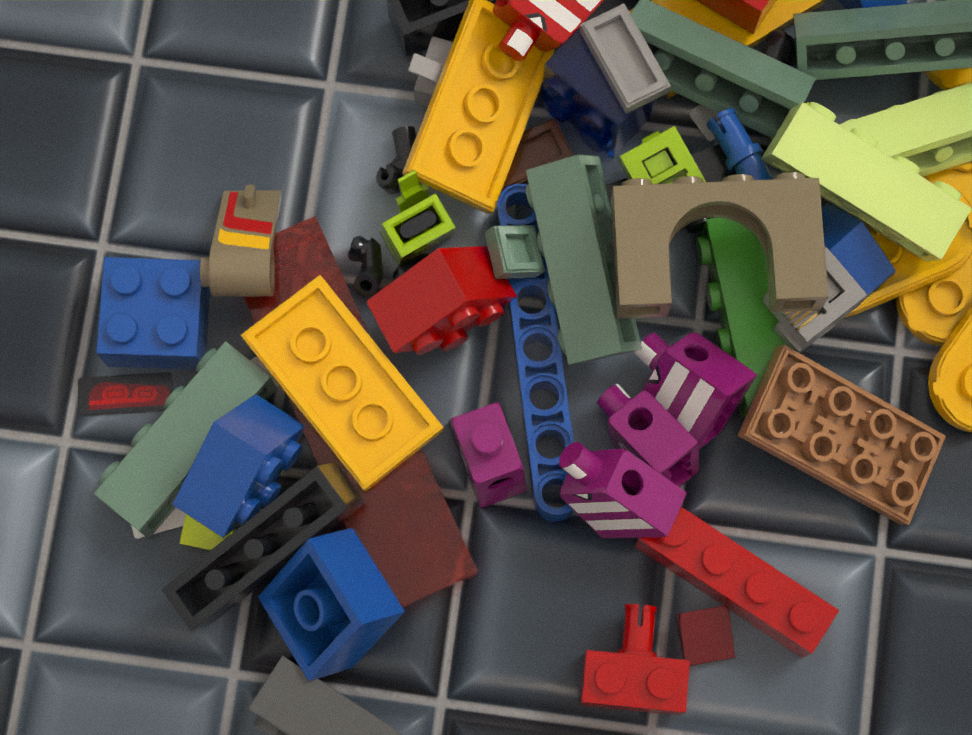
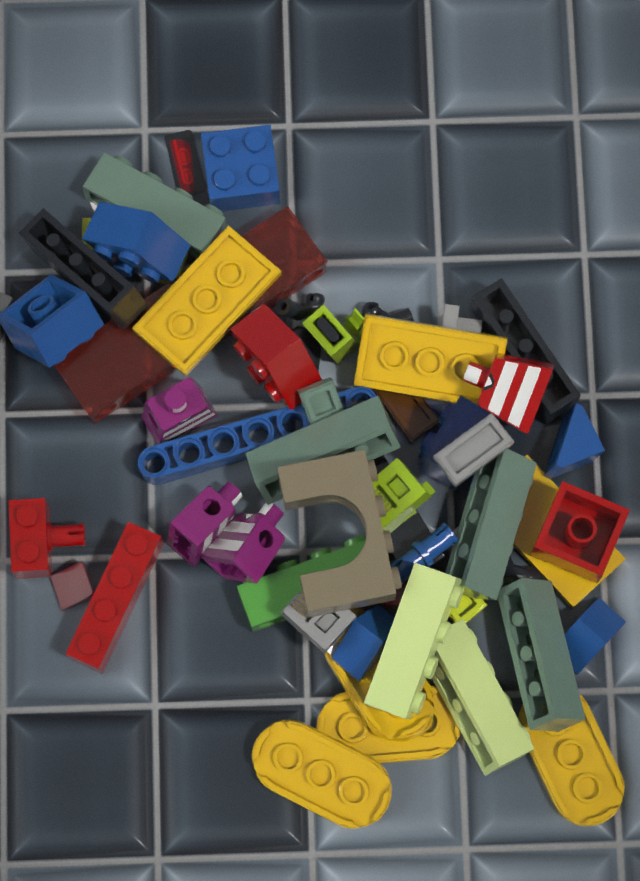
camera: 80 degrees right, 0 degrees up
(243, 244) = (288, 214): dark tan door -> none
(618, 493) = (156, 498): magenta torso -> none
(842, 435) = (228, 658): medium nougat tile -> none

